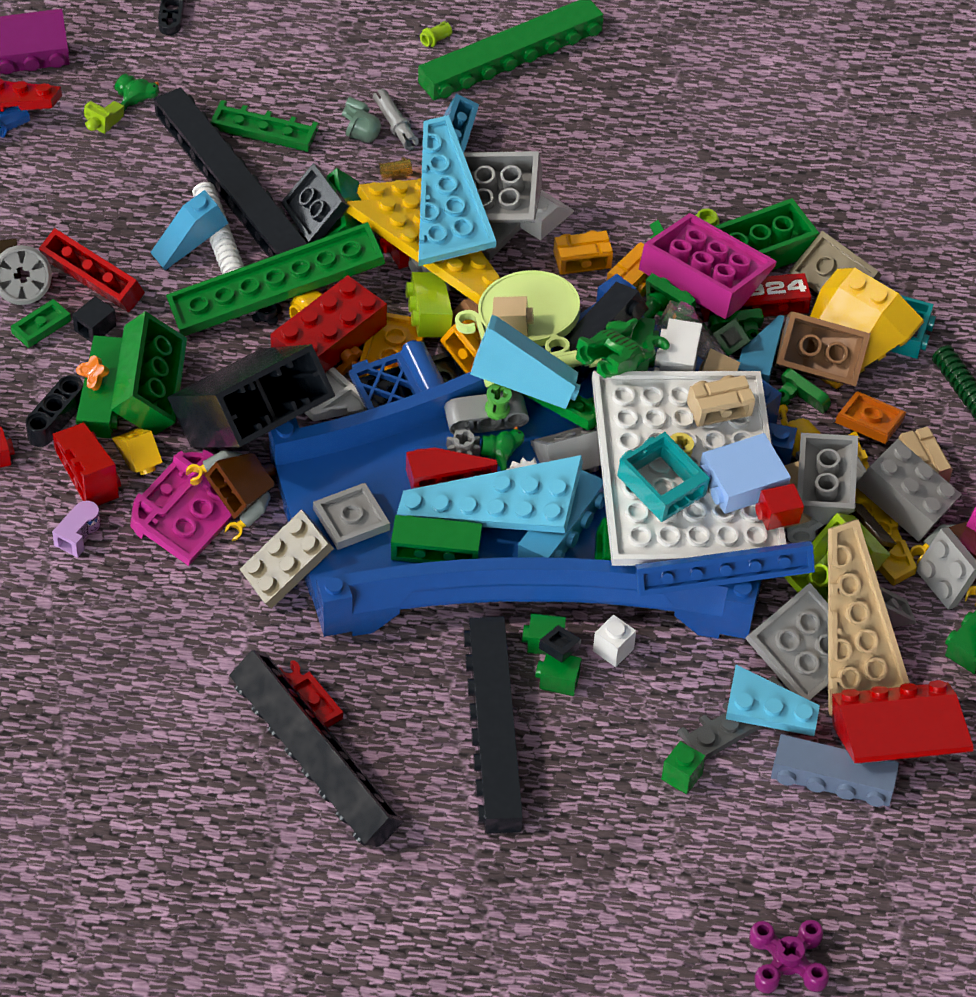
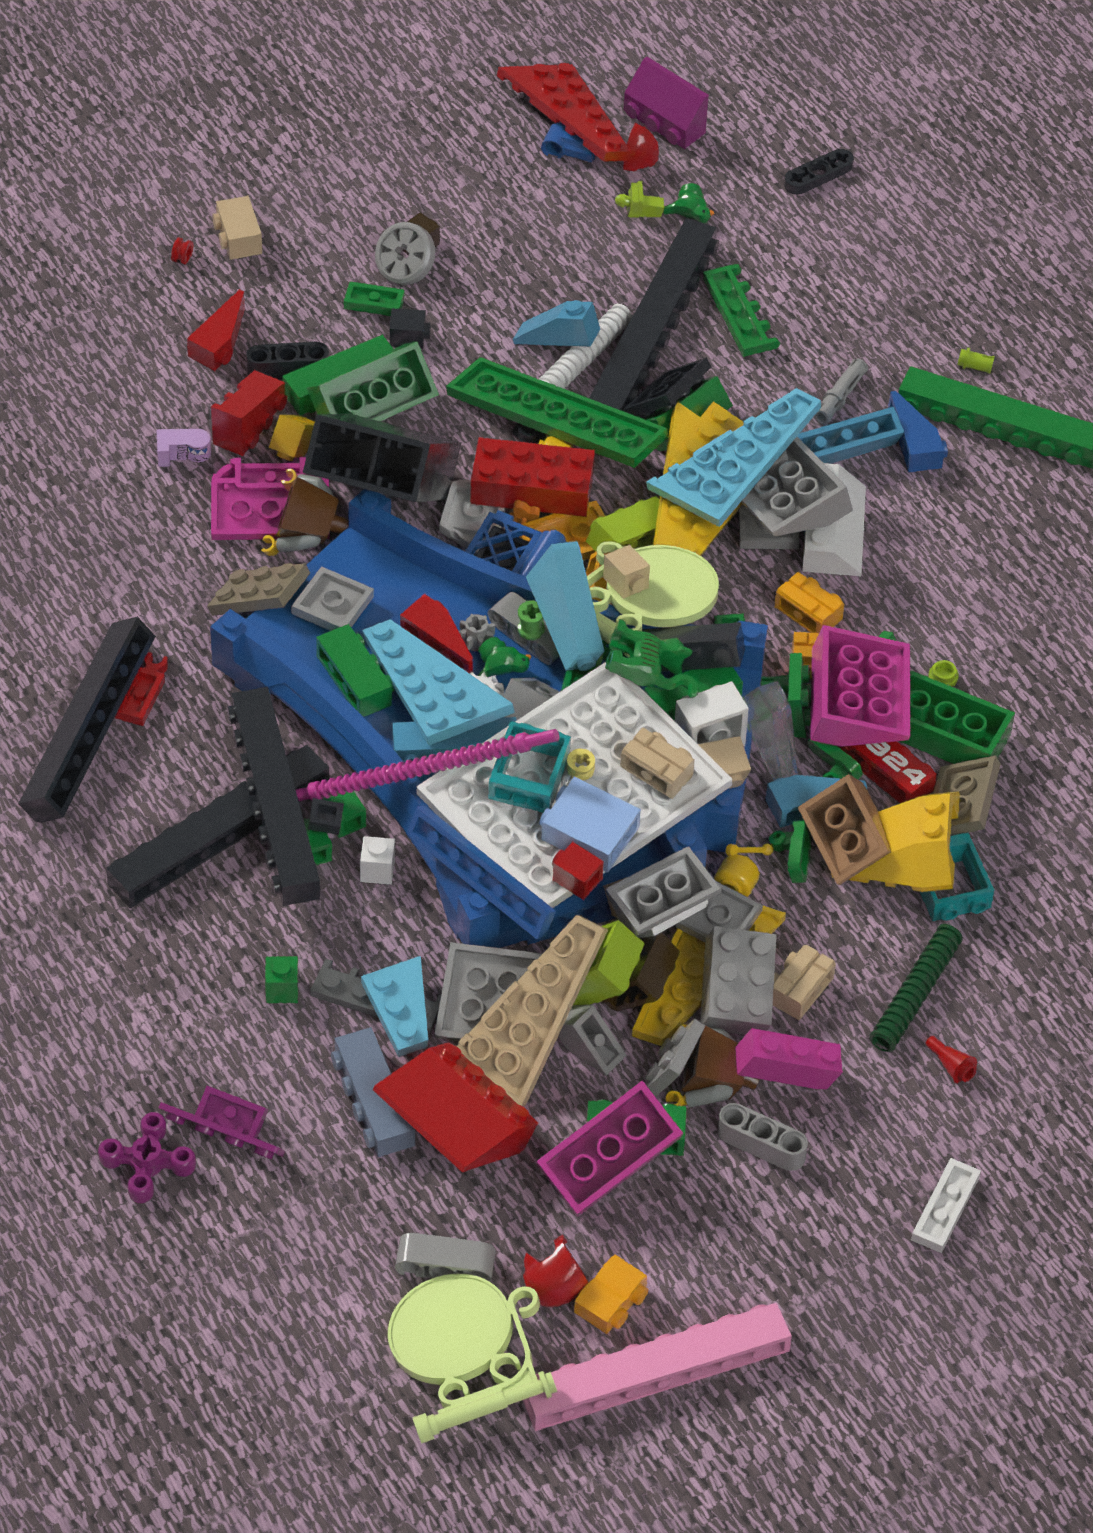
camera: 55 degrees right, 0 degrees up
(54, 76) = (643, 149): none -> red brick
(91, 270) = (454, 294): red brick -> none
(93, 371) = (336, 354): orange piece -> none
(362, 124) = (809, 369): sand green piece -> none
(494, 104) = (920, 440): none -> blue slope
(514, 663) = (275, 797): none -> black brick
(662, 458) = (520, 743): none -> dark pink hose
(732, 336) = (802, 758): dark green brick -> none
(789, 878) = (229, 1116): none -> magenta bracket
(870, 417) = (814, 917): orange tile -> none

